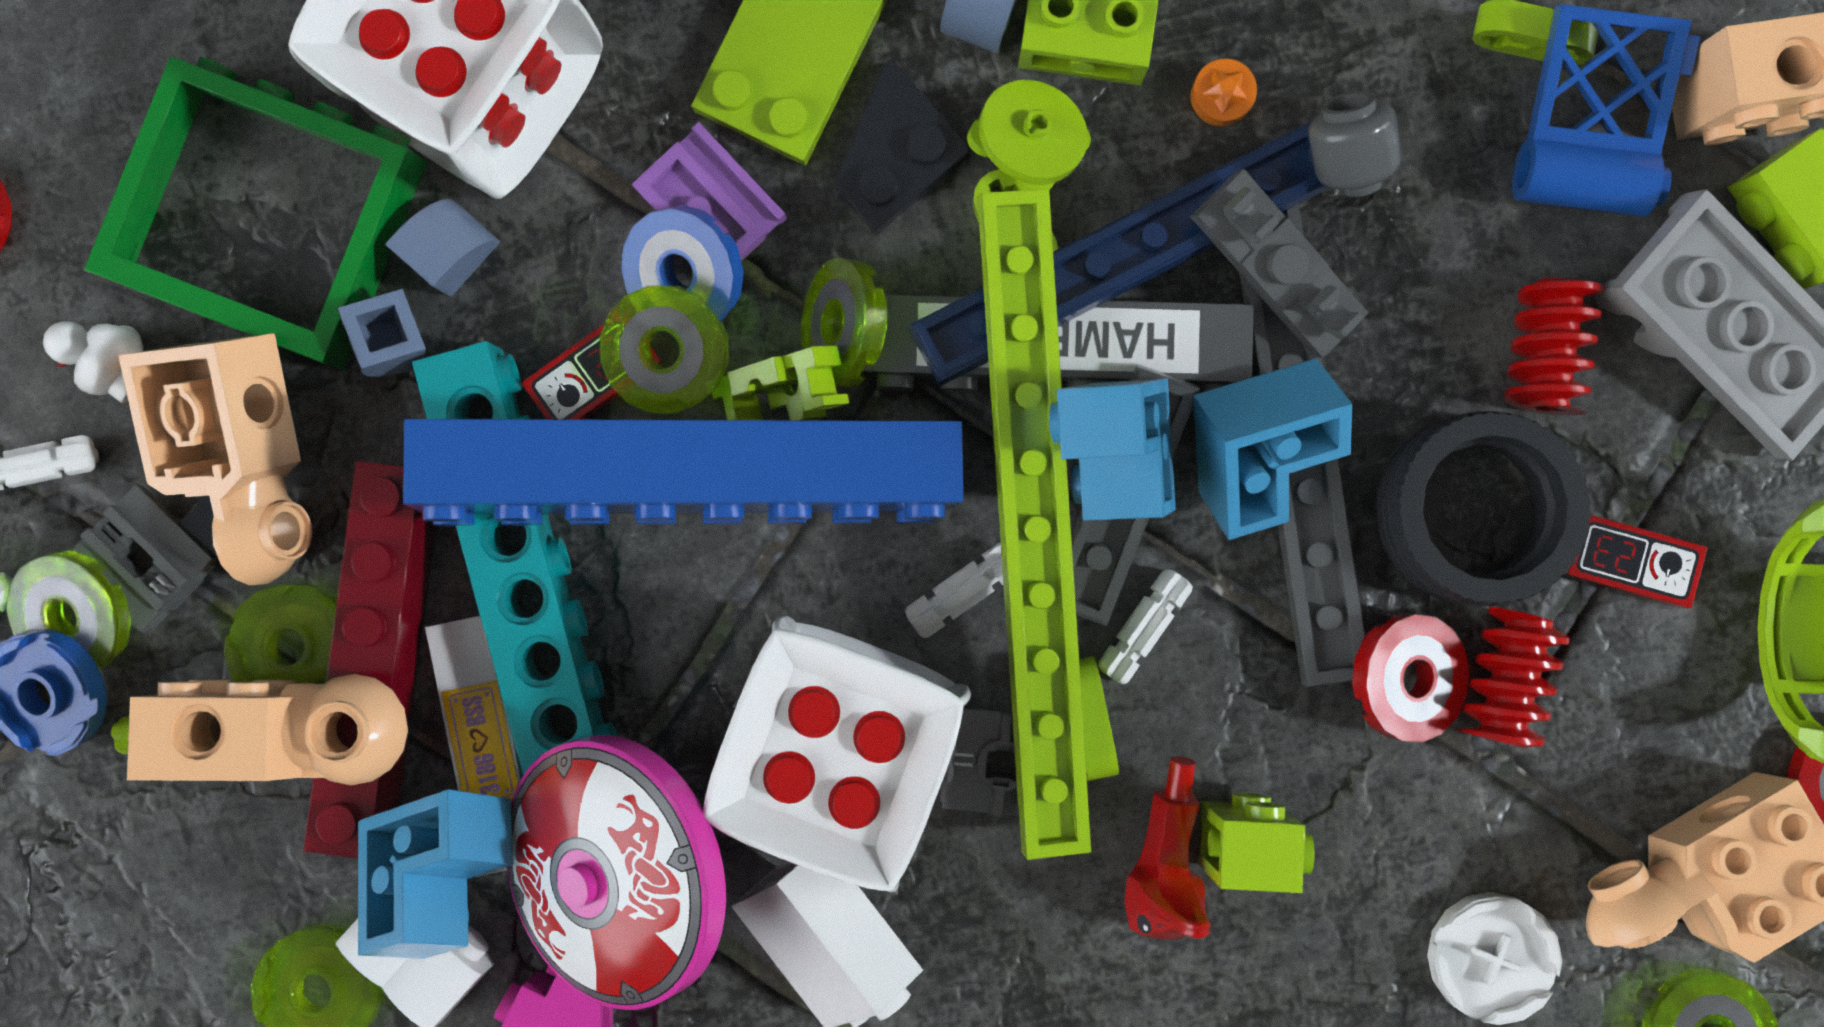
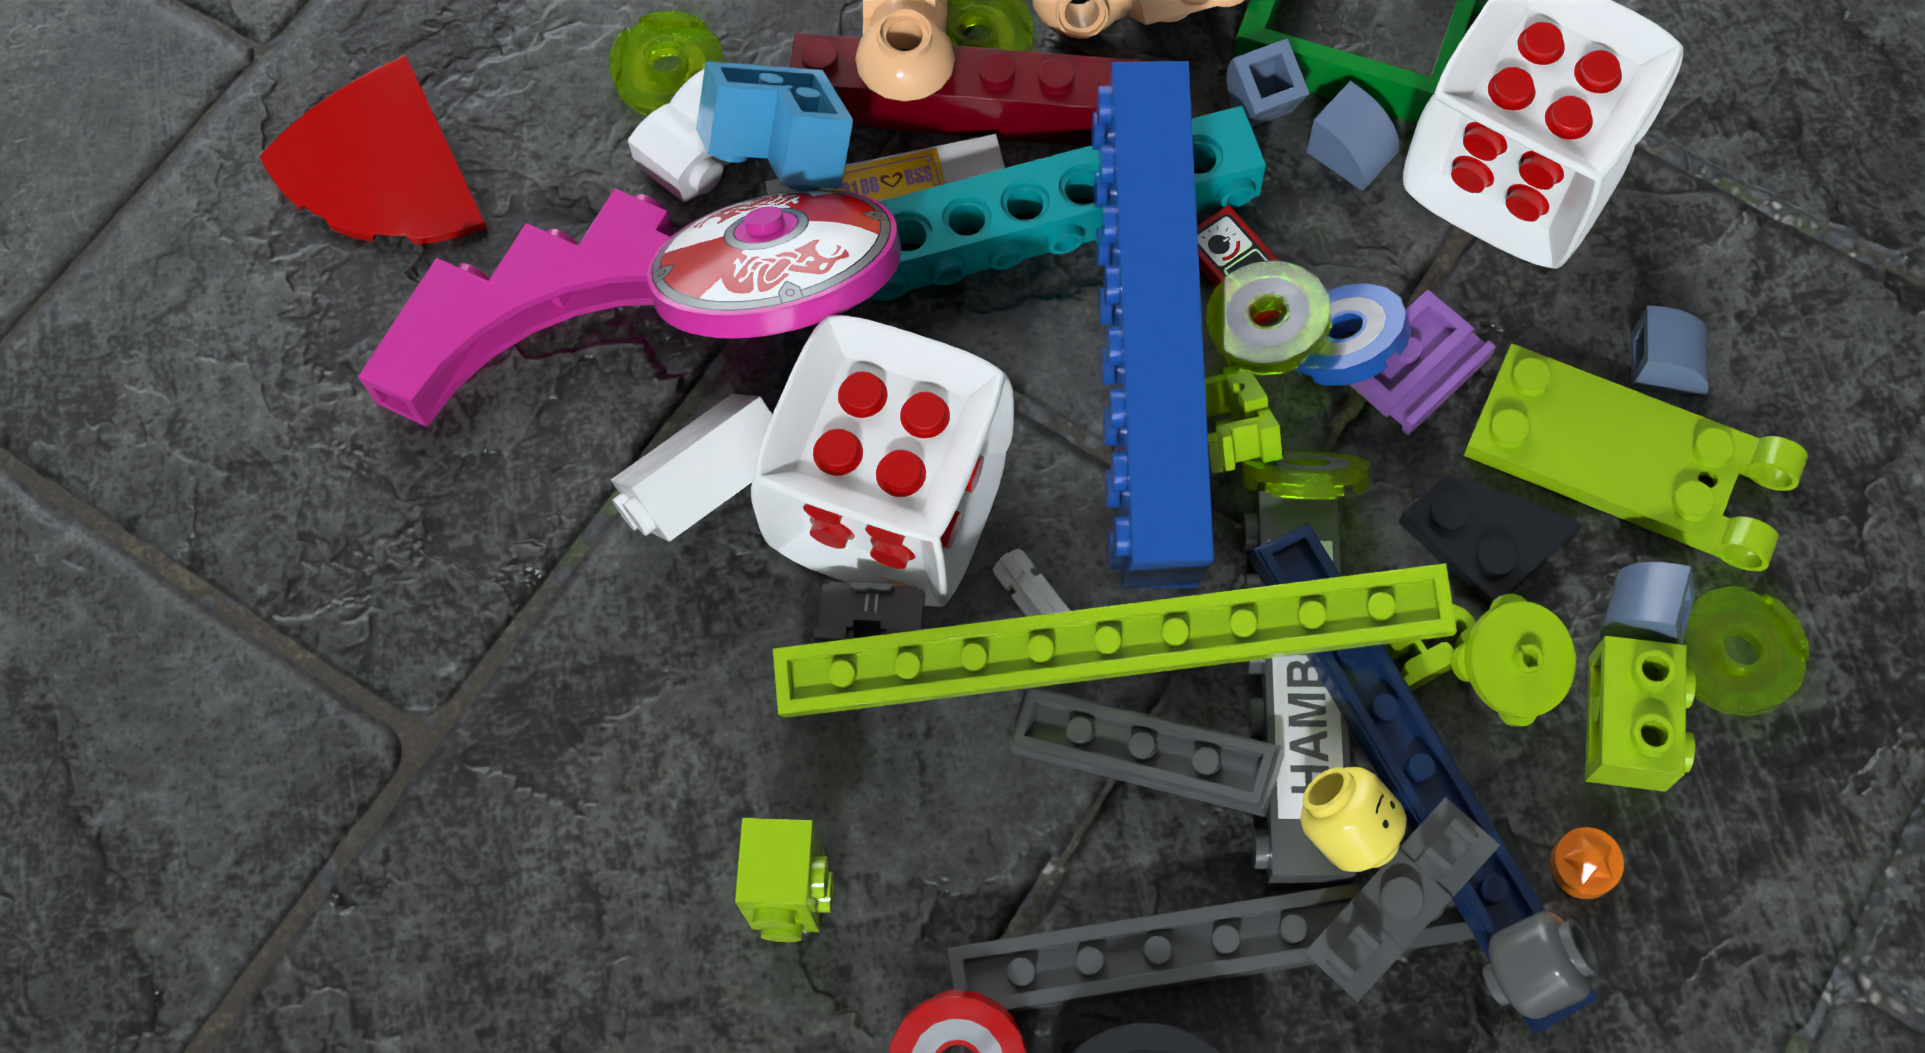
camera: 80 degrees right, 20 degrees down
(1098, 737) = (912, 727): lime beam -> none
(1121, 447) = (1200, 720): dark azure brick -> none
(1145, 626) = (1008, 786): white axle -> none
(1161, 891) = (726, 793): red animal -> none
(1219, 303) = (1353, 818): none -> light yellow head
(1259, 434) = (1217, 873): dark azure brick -> none

